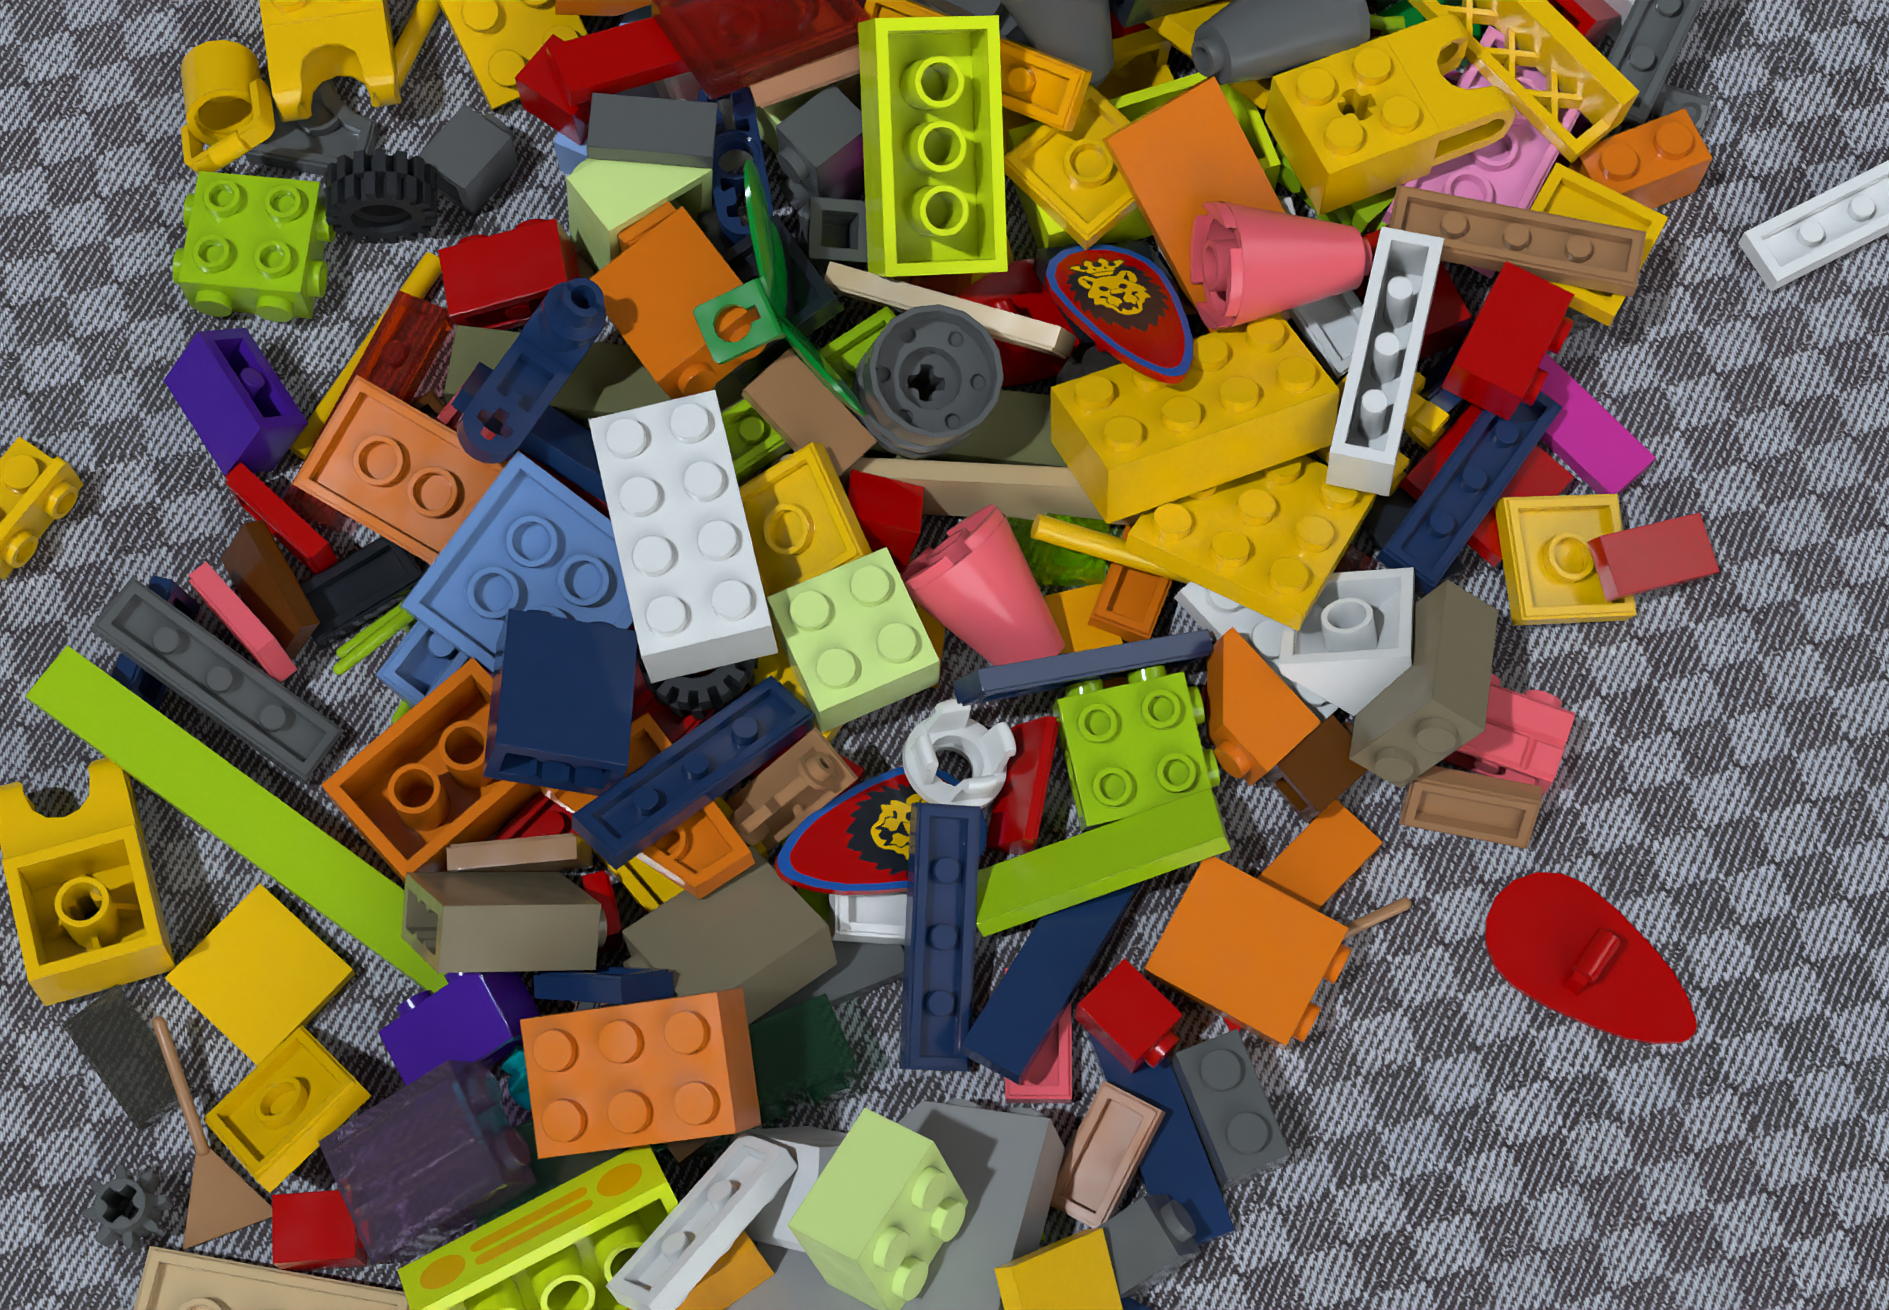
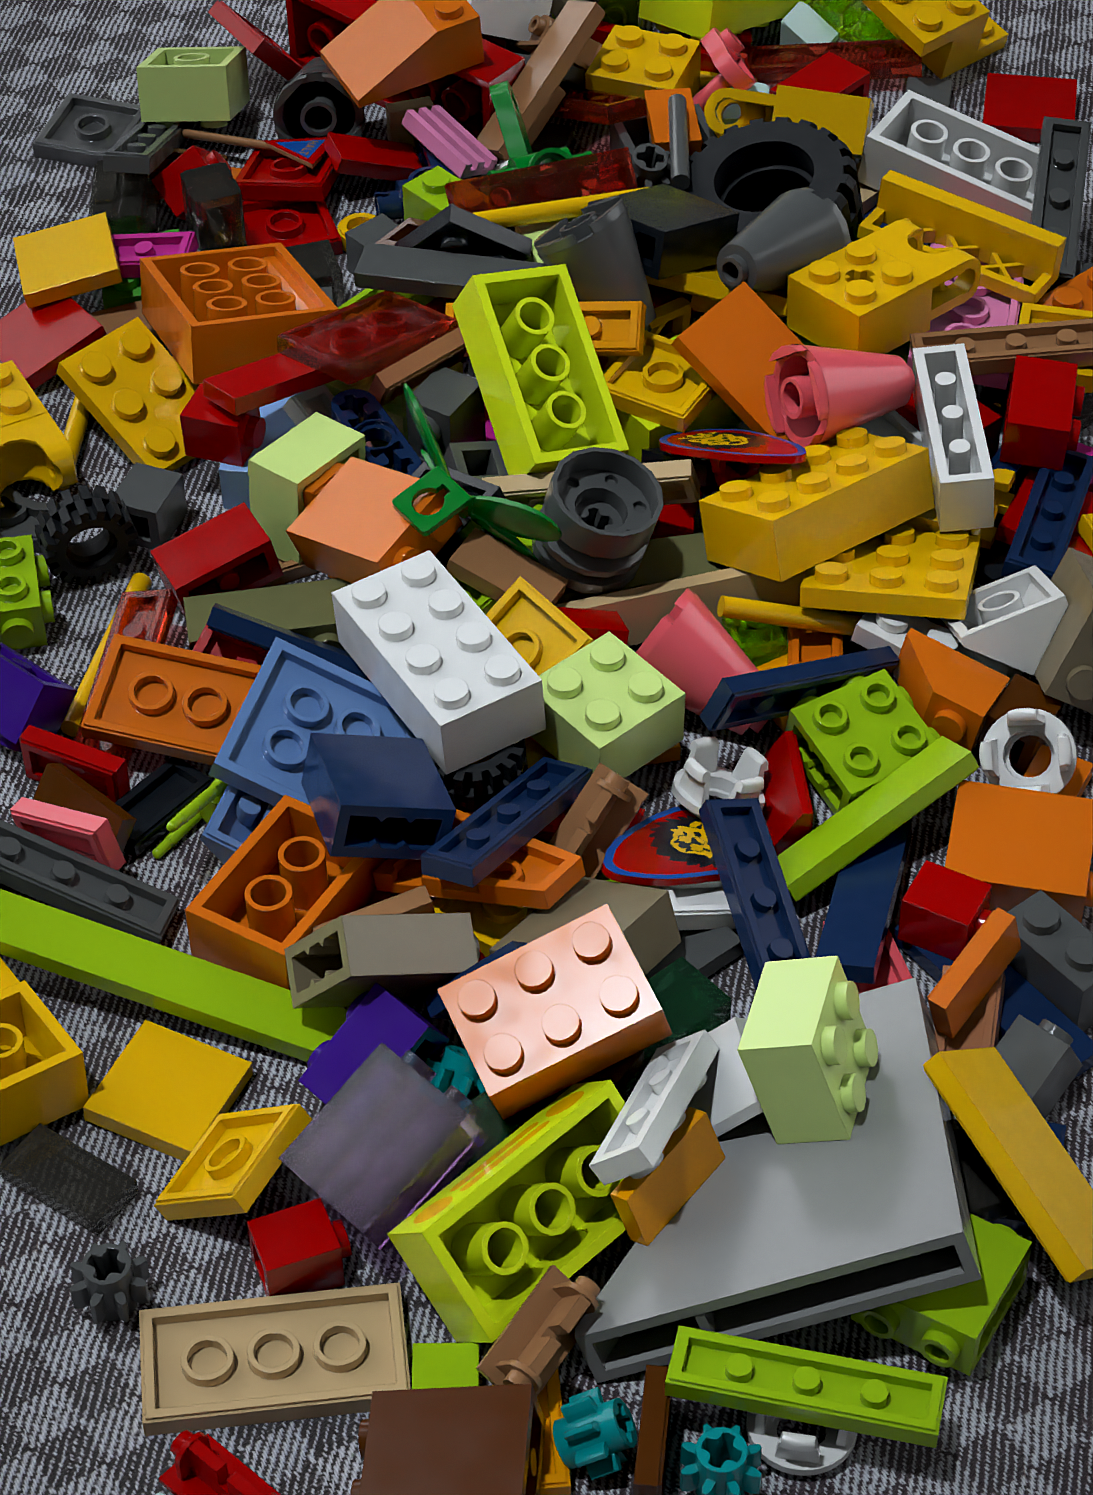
camera: 15 degrees left, 25 degrees down
(218, 1194) = (188, 1263): medium nougat piece -> none
(533, 369) = (272, 574): dark blue piece -> none
(652, 130) = (308, 416): dark grey tile -> none
(1119, 1121) = (974, 972): none -> orange tile
(1286, 862) = (1021, 722): none -> white piece

